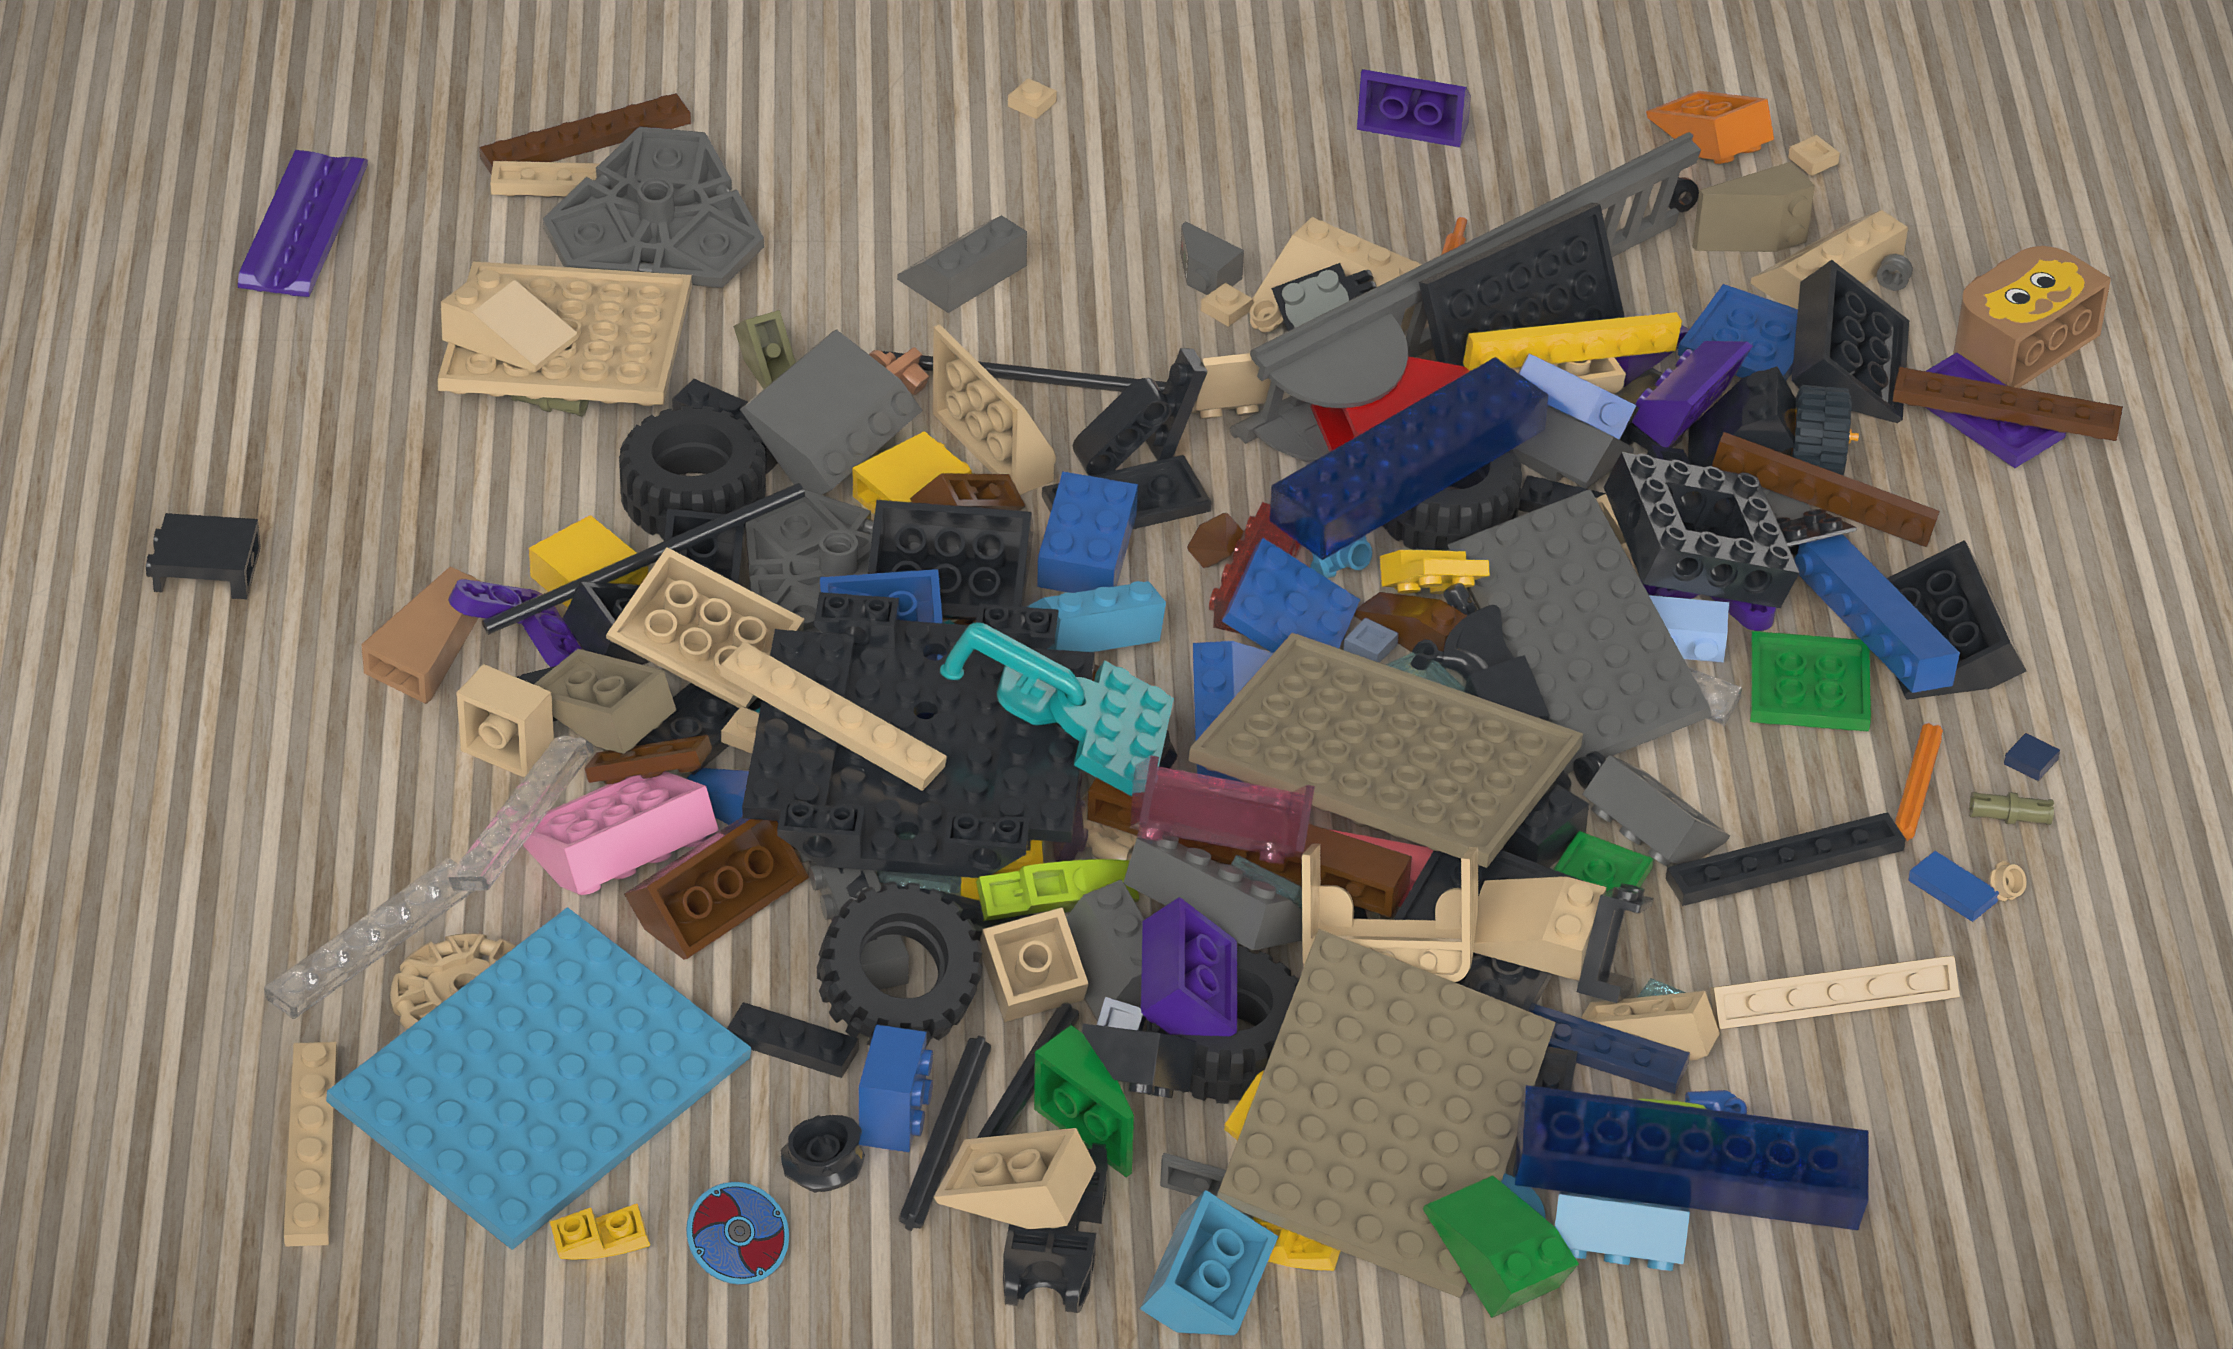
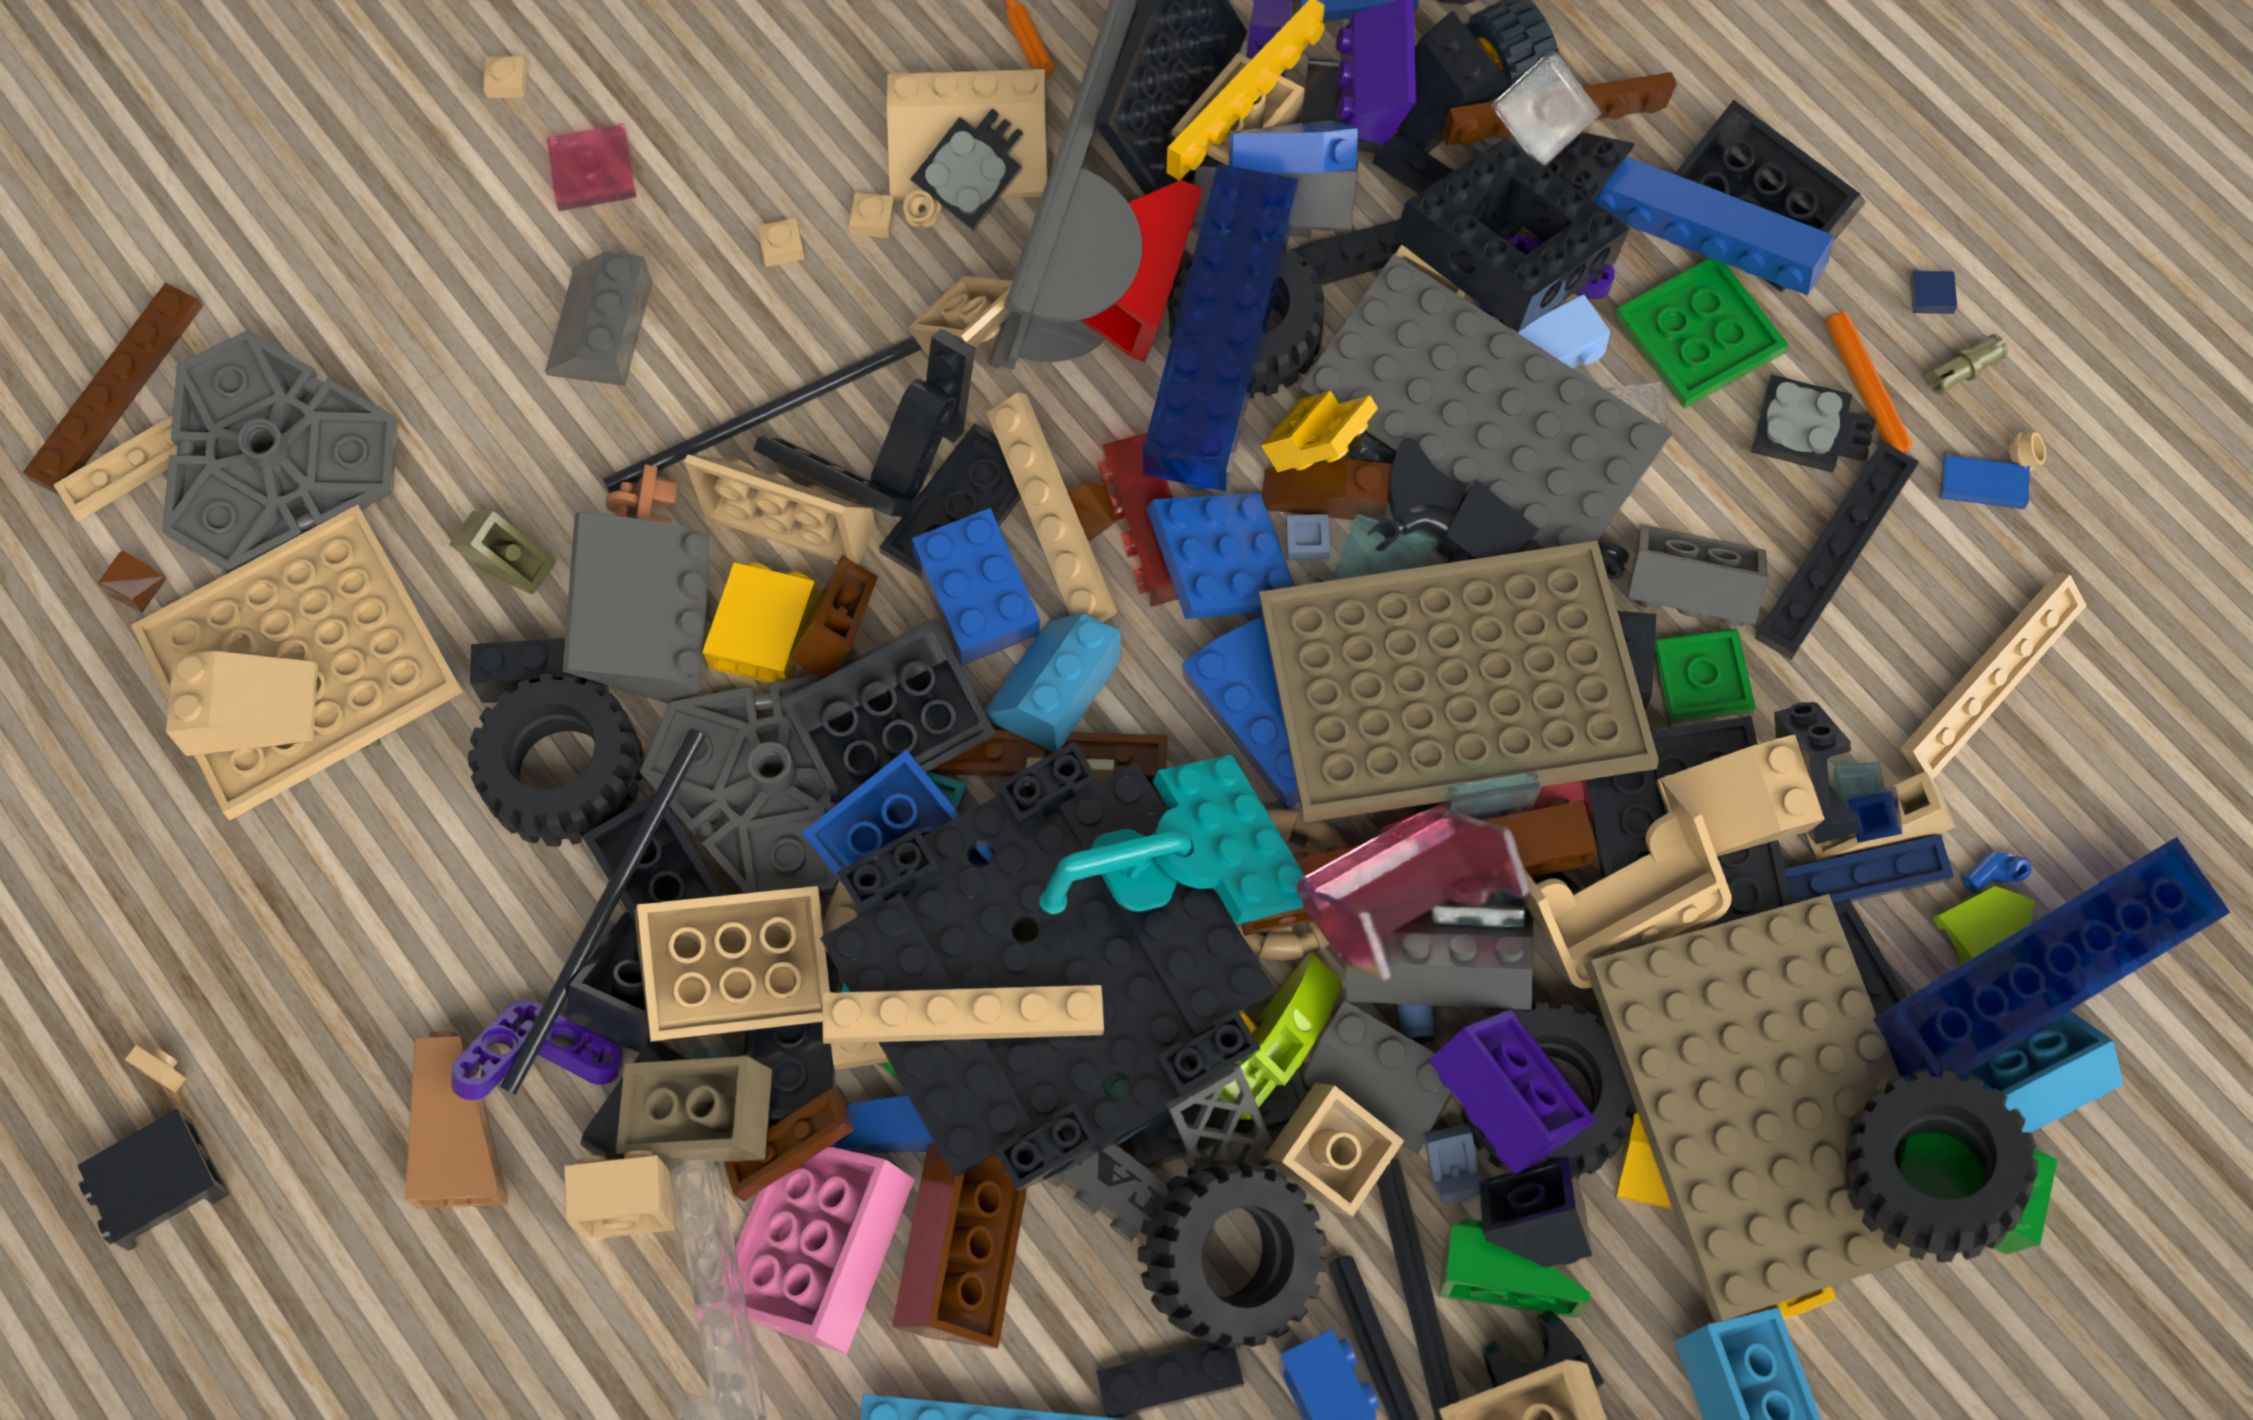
camera: 30 degrees left, 25 degrees up
(264, 500) = (156, 1066): none -> tan plate
(495, 241) = (131, 581): none -> reddish brown slope
(578, 552) = (530, 933): yellow brick -> none
(990, 890) = (1208, 1096): none -> dark grey window
(1044, 178) = (591, 167): none -> clear pink tile
(1046, 424) = (834, 476): none -> black tile
(1143, 286) = (781, 242): none -> tan plate
(1189, 519) = (1050, 509): none -> tan plate
(1189, 1176) = (1651, 1277): dark grey slope -> none
(1209, 260) = (820, 177): dark grey slope -> none
(1344, 810) = (1493, 796): none -> clear light blue tile
(1467, 1182) = (1961, 1112): none -> black tyre
(1643, 999) = (1876, 814): none -> clear blue slope
(1804, 472) = (1546, 108): none -> clear plate
(1842, 781) = (1810, 425): none -> piece

